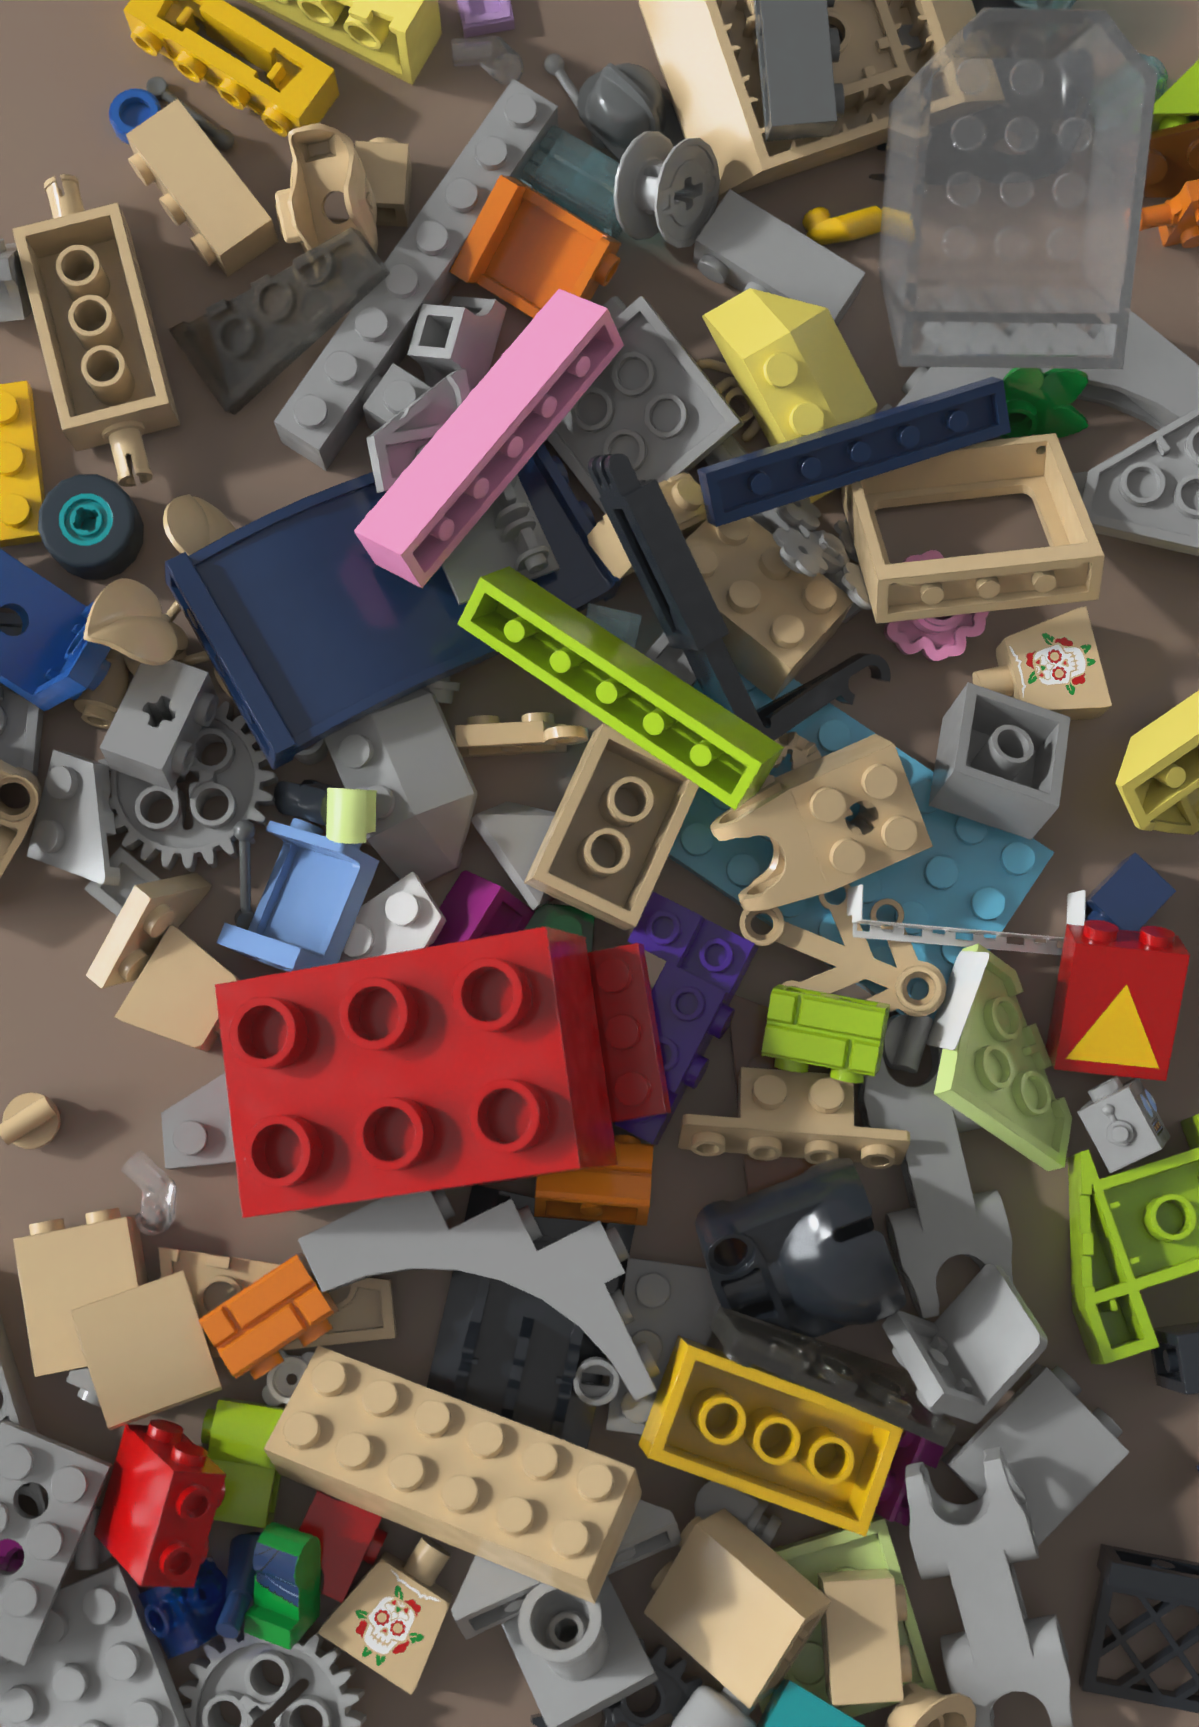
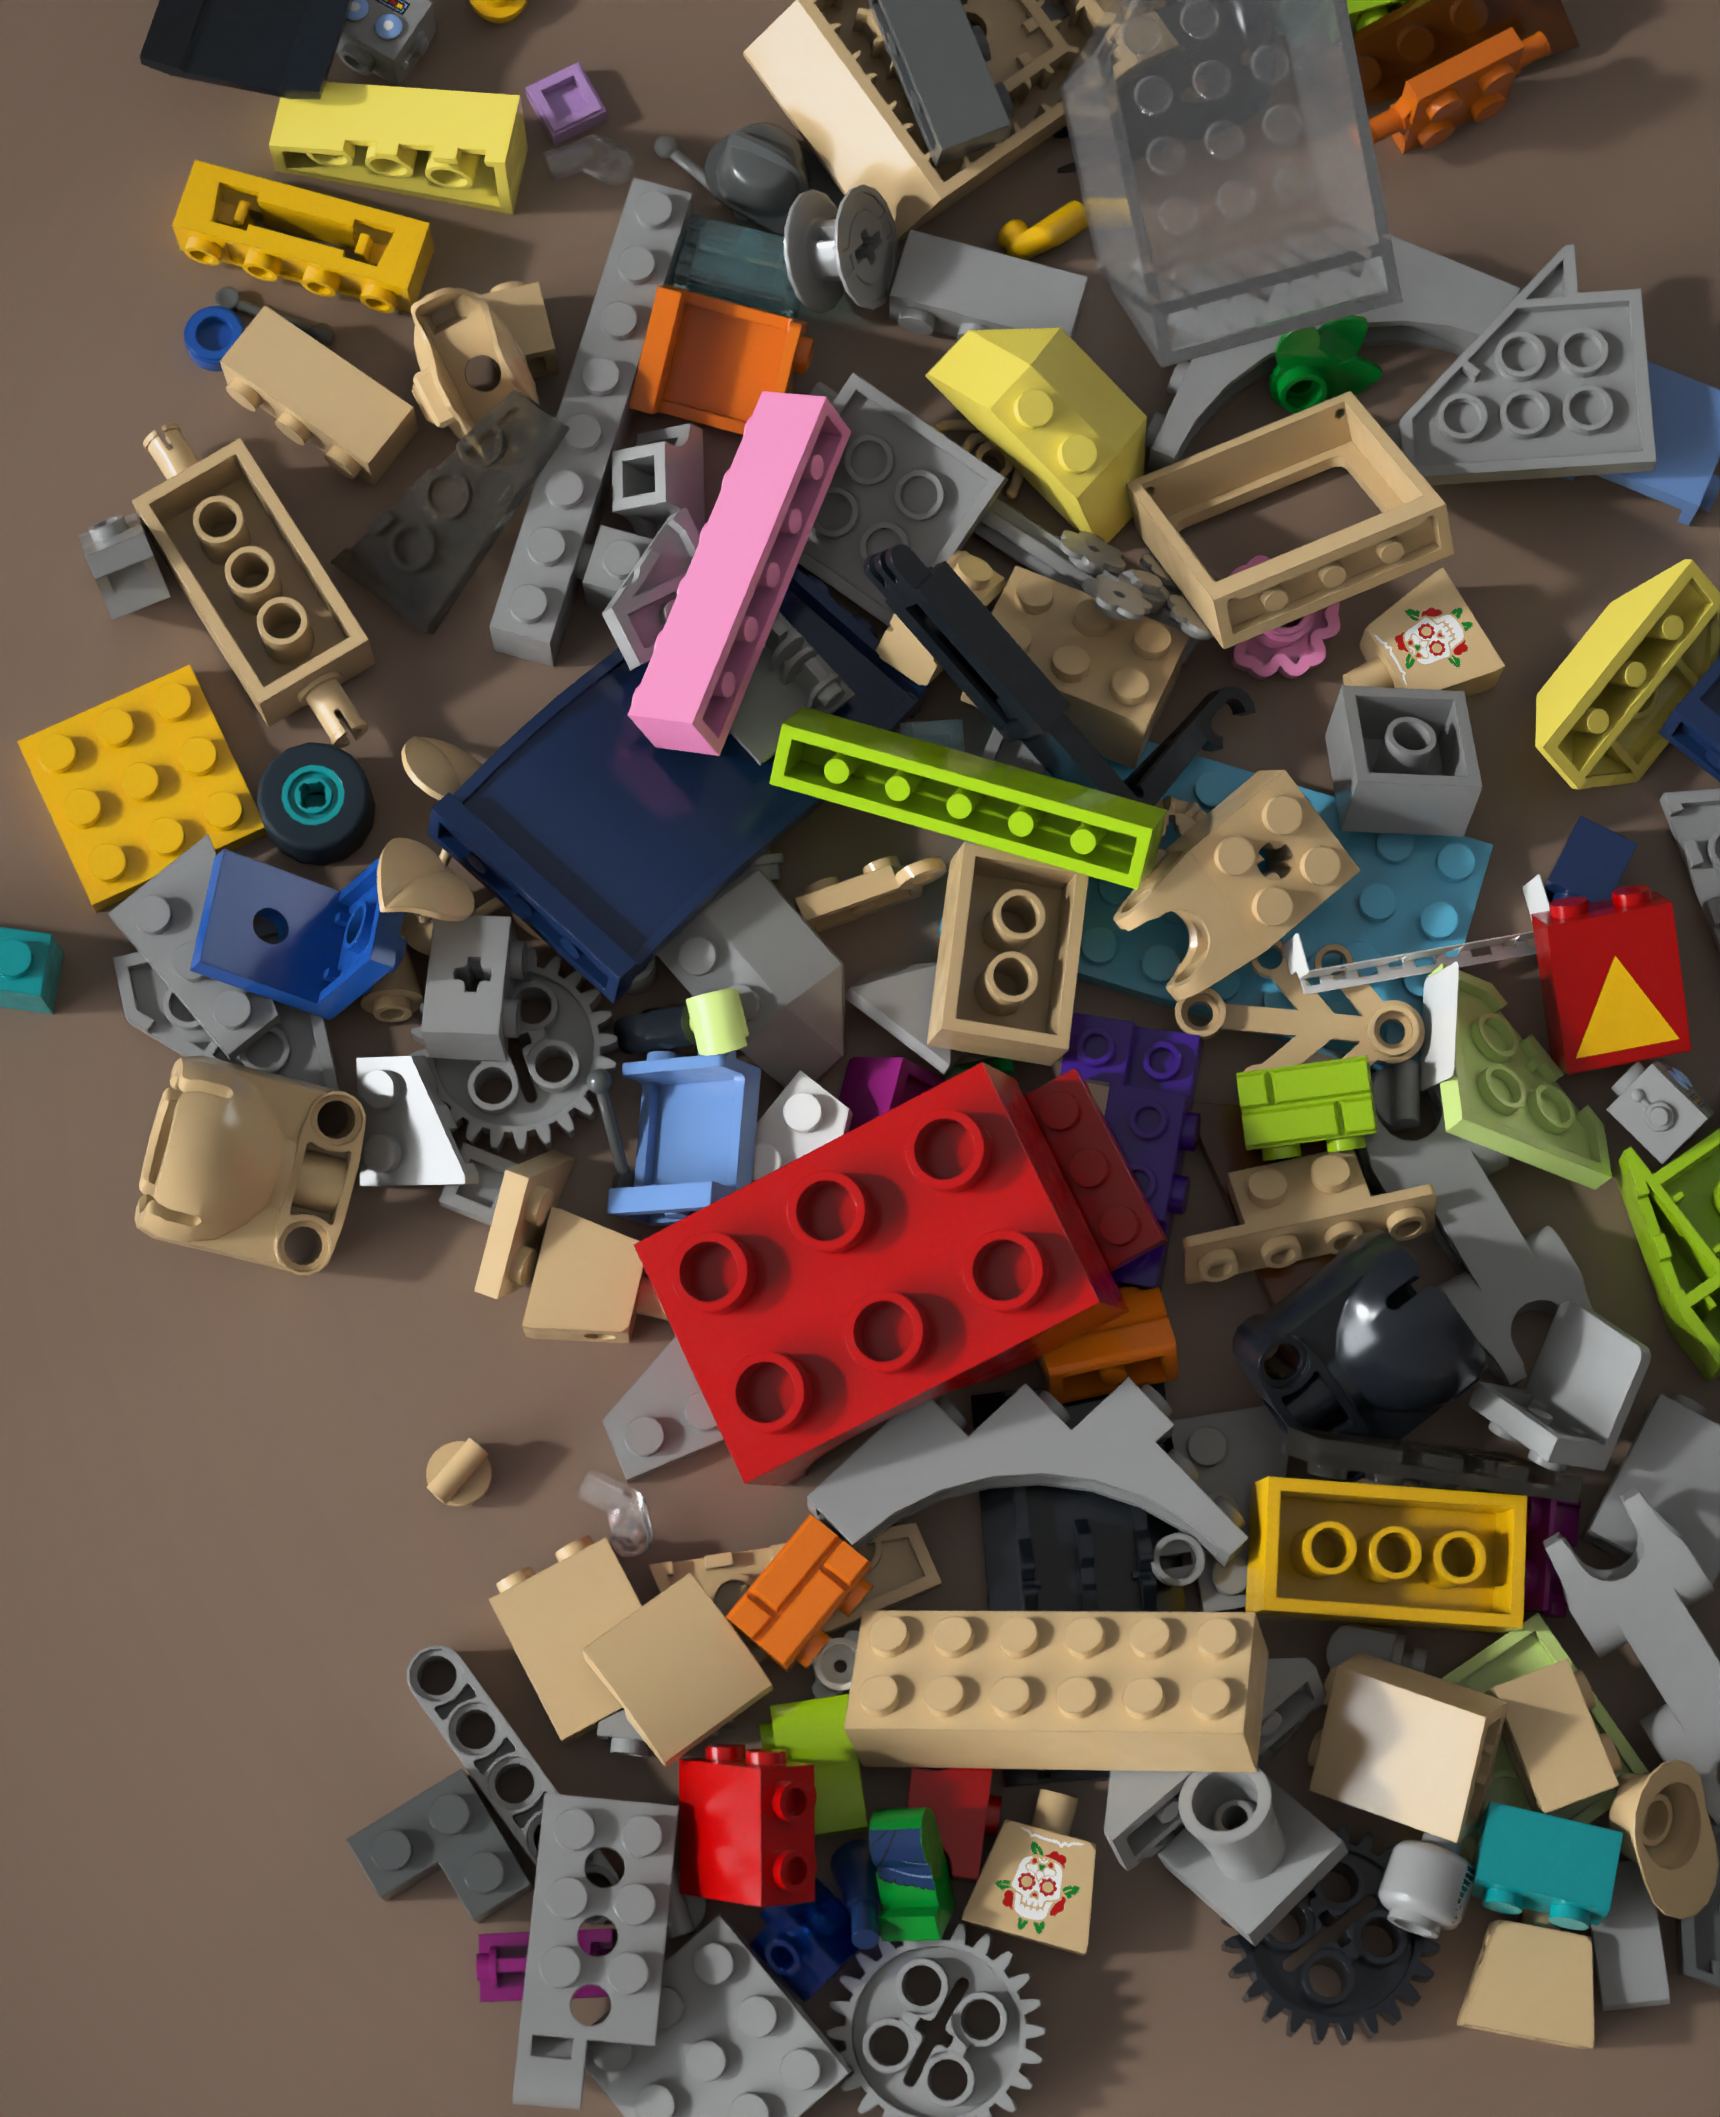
camera: 15 degrees left, 5 degrees down
(854, 451) = (1139, 473): dark blue plate -> none

